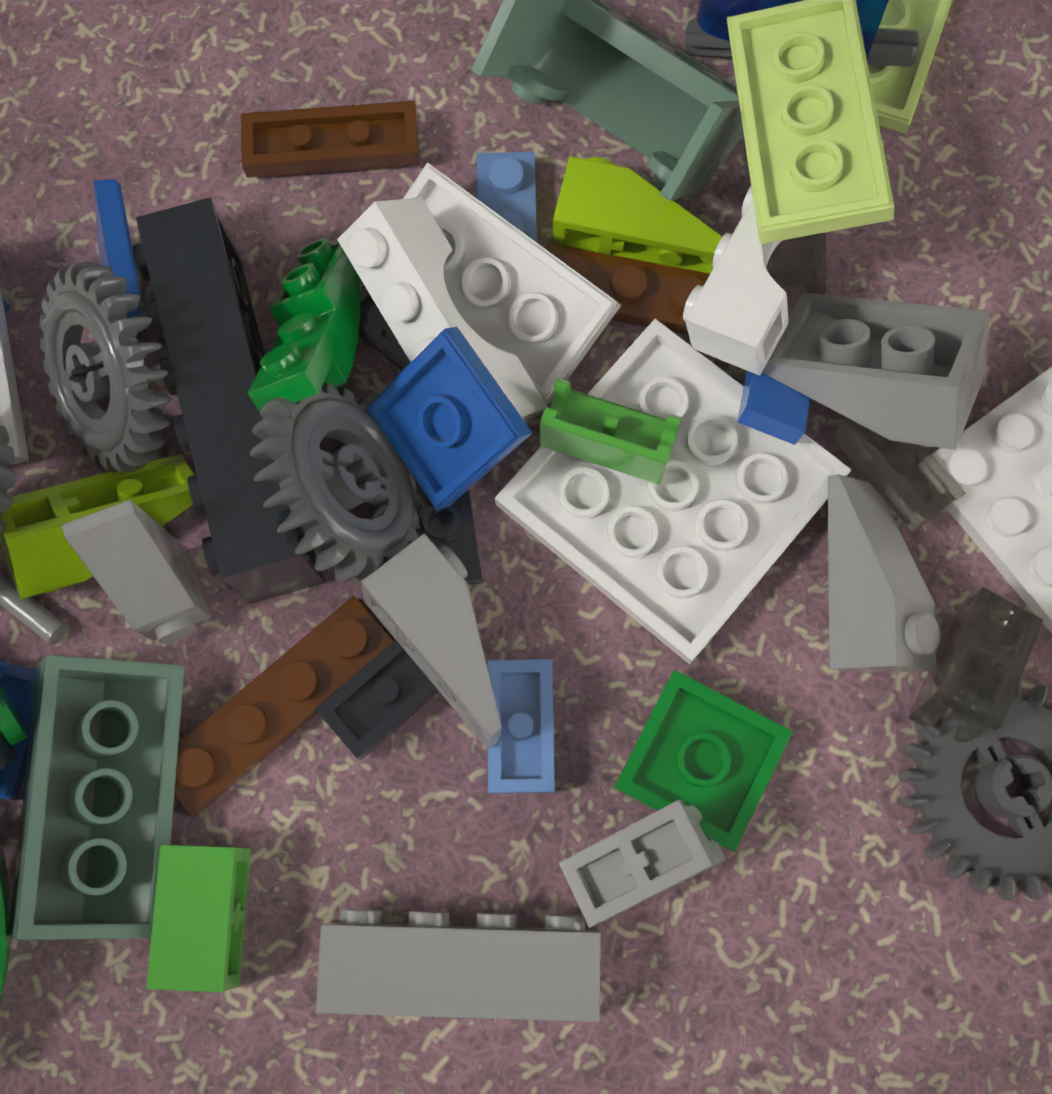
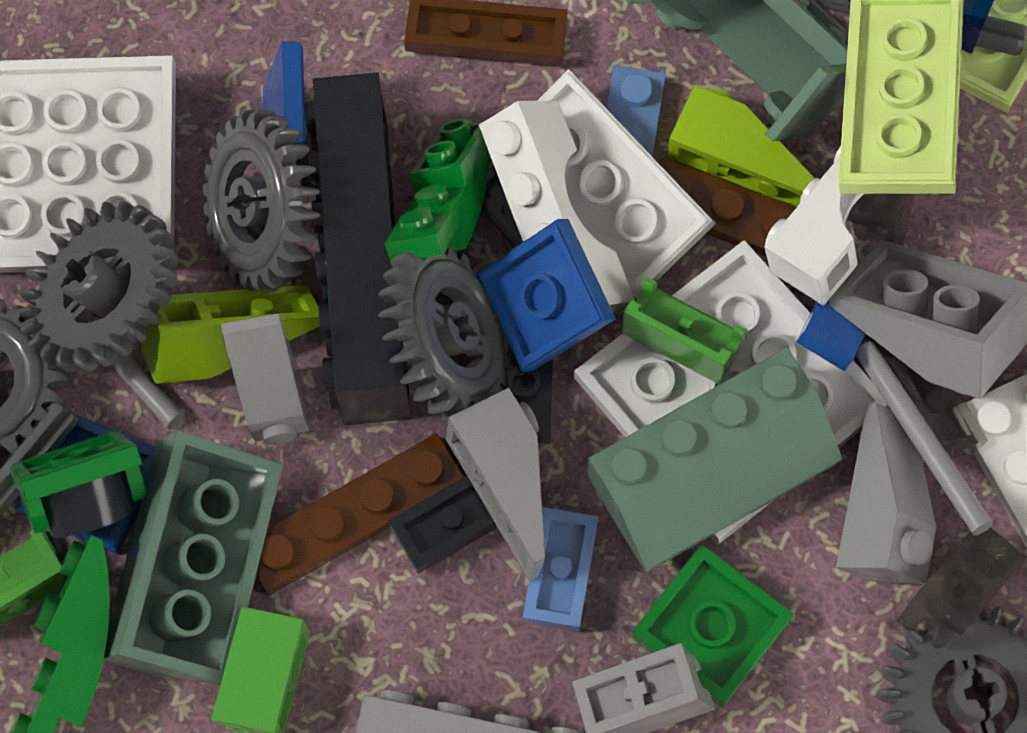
camera: 10 degrees right, 5 degrees down
(673, 572) = (715, 459): none -> sand green slope
(902, 508) = (924, 439): none -> light grey bar

